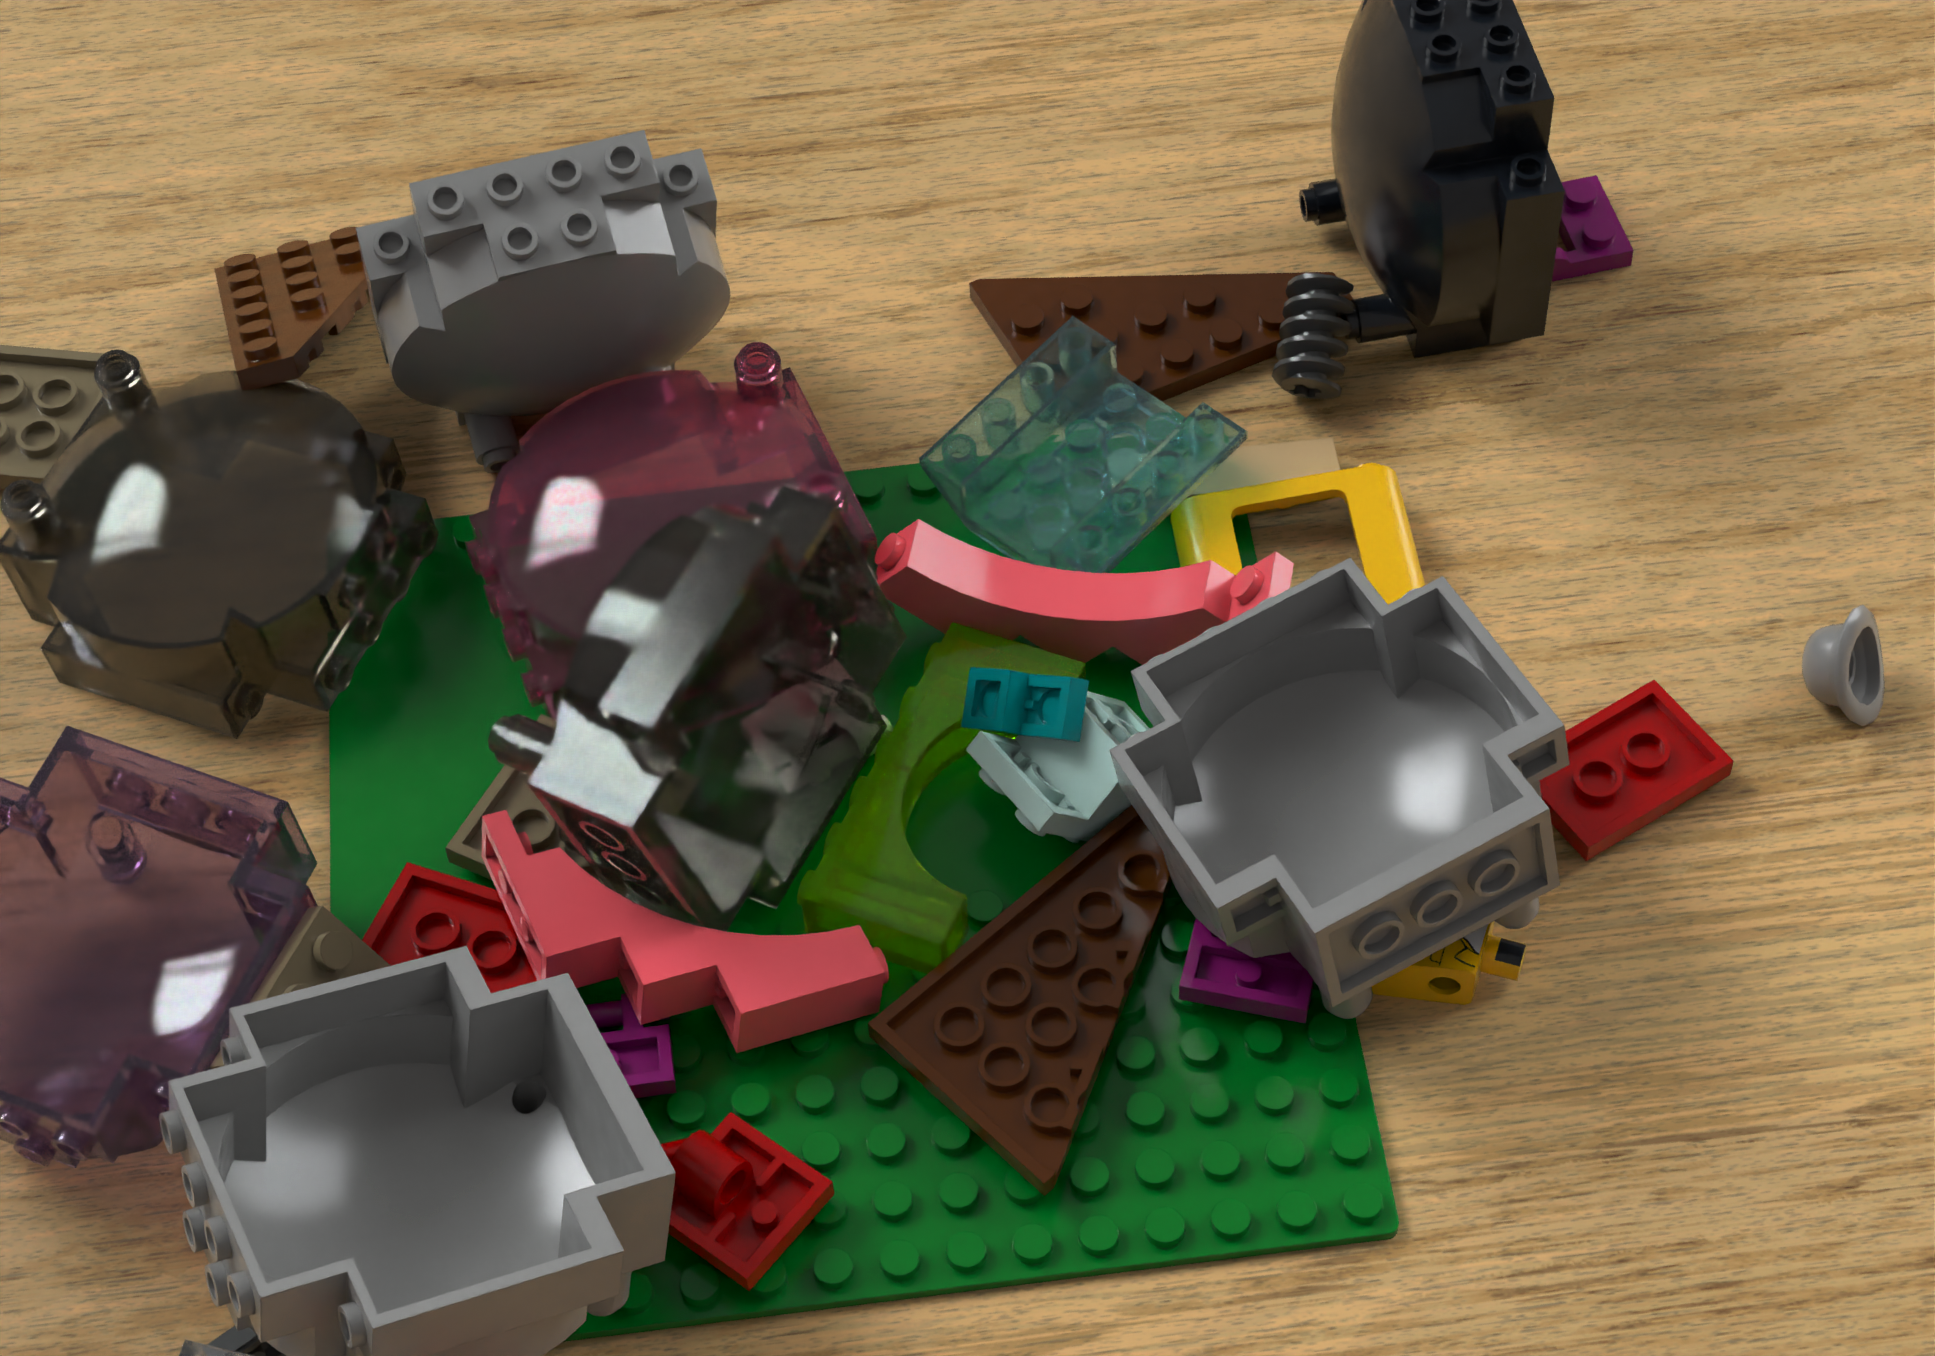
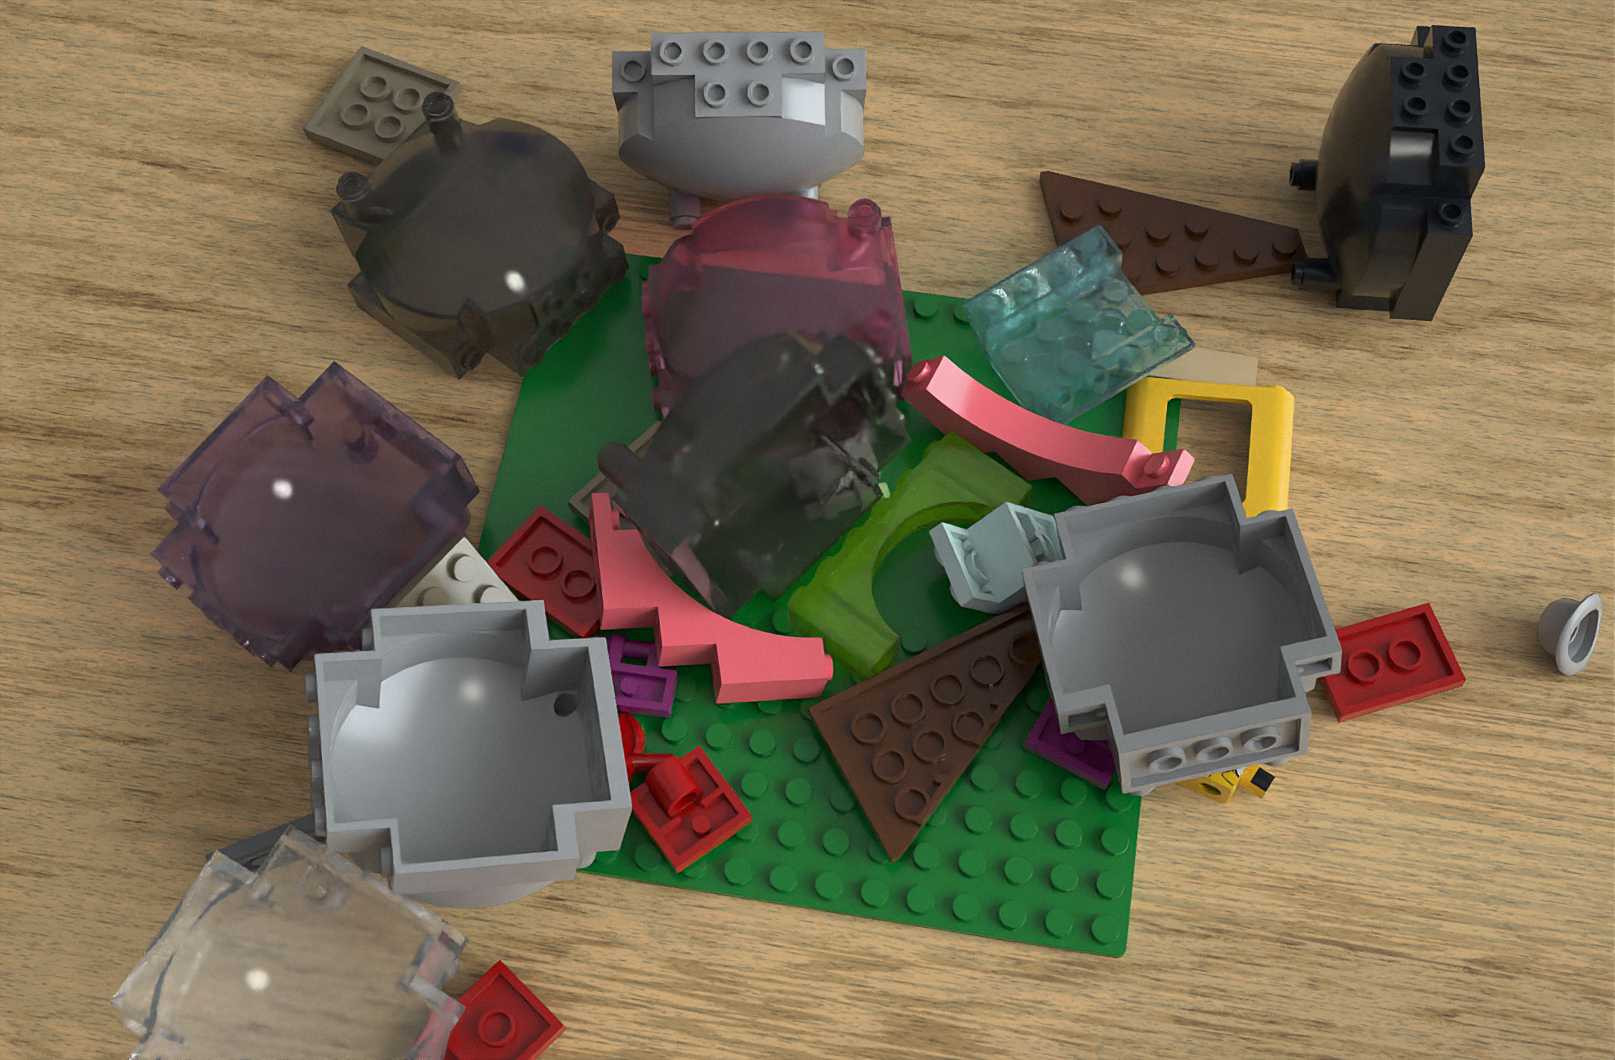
camera: 15 degrees right, 10 degrees up
(287, 303) = (572, 74): reddish brown wing -> none
(1025, 704) = (979, 509): teal slope -> none
(1309, 336) = (1265, 277): dark grey piece -> none
(1589, 232) = (1492, 241): magenta plate -> none

